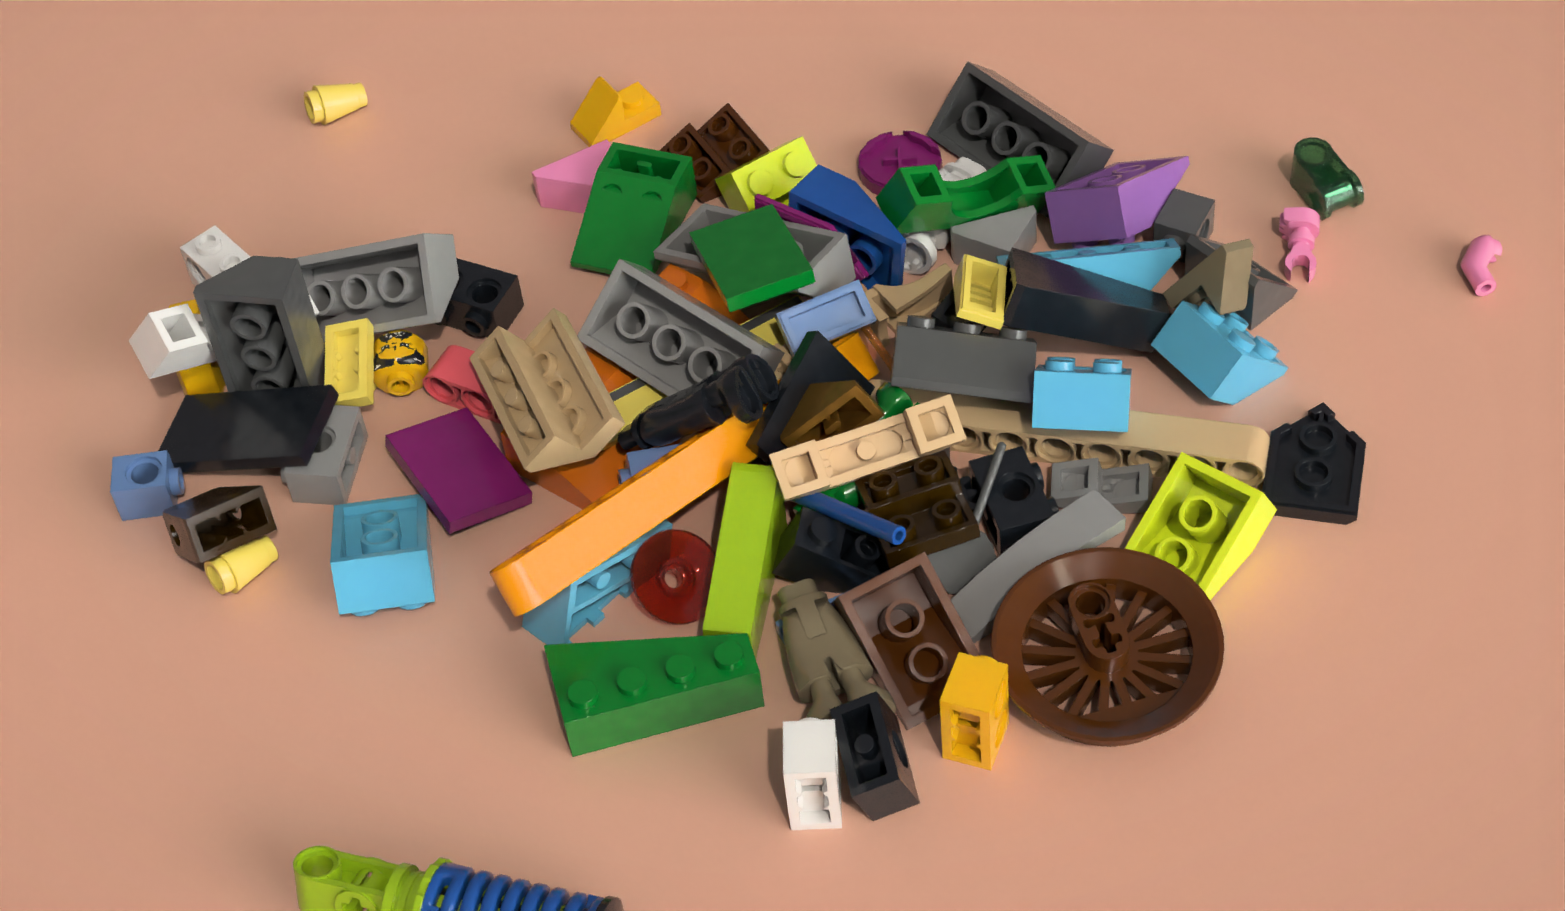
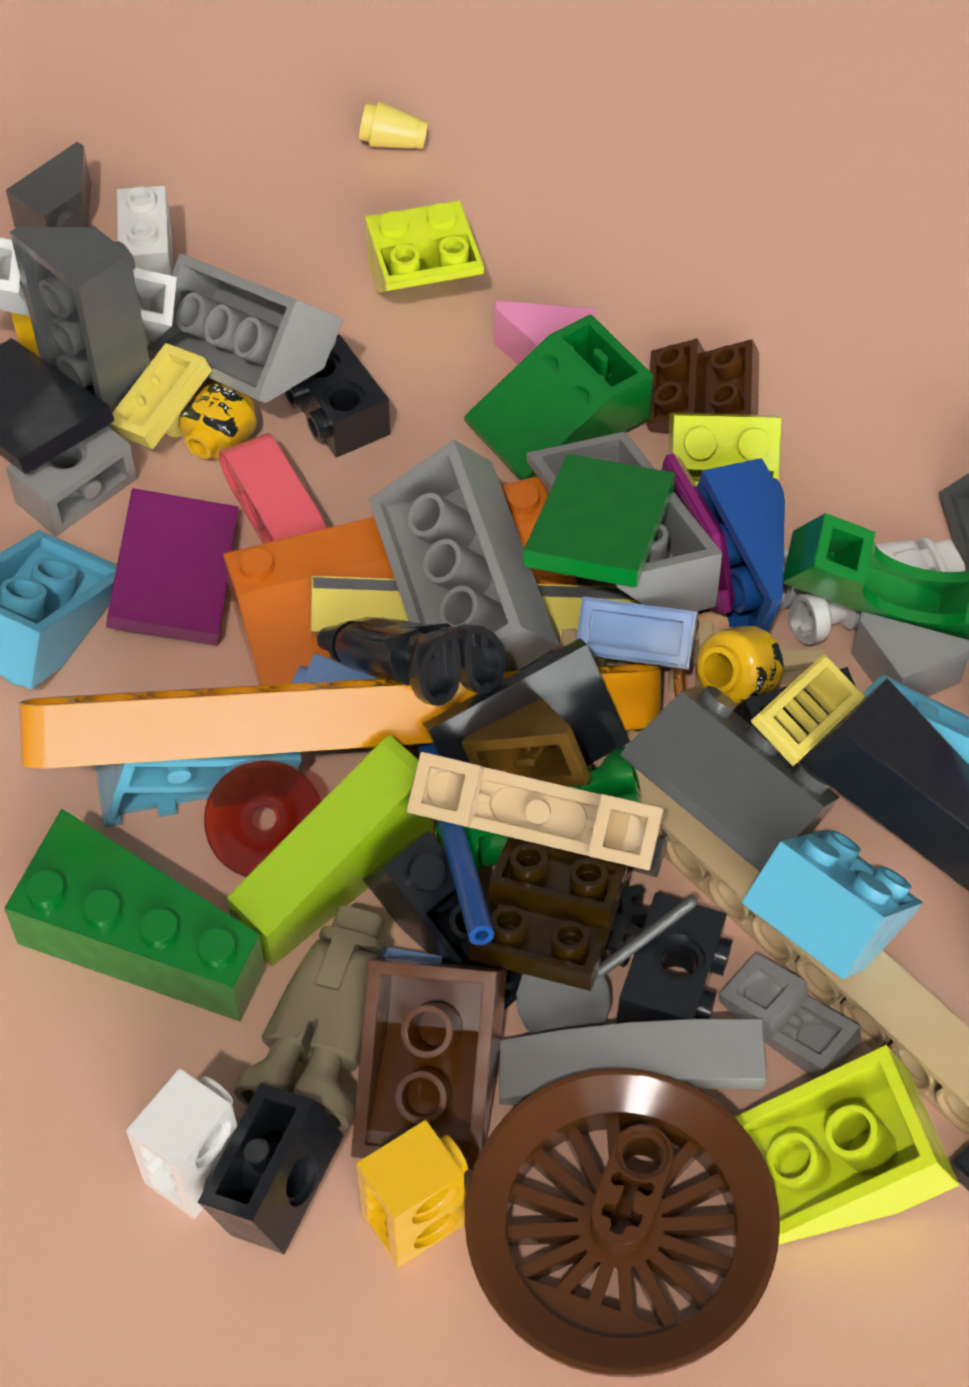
camera: 30 degrees right, 5 degrees up
(123, 286) = (54, 192): none -> dark grey slope
(441, 169) = (421, 247): none -> neon yellow slope
(547, 394) = (286, 542): tan slope -> none
(612, 113) = (631, 288): yellow slope -> none
(888, 153) = (885, 502): magenta tile -> none
(908, 292) = (740, 662): none -> yellow head

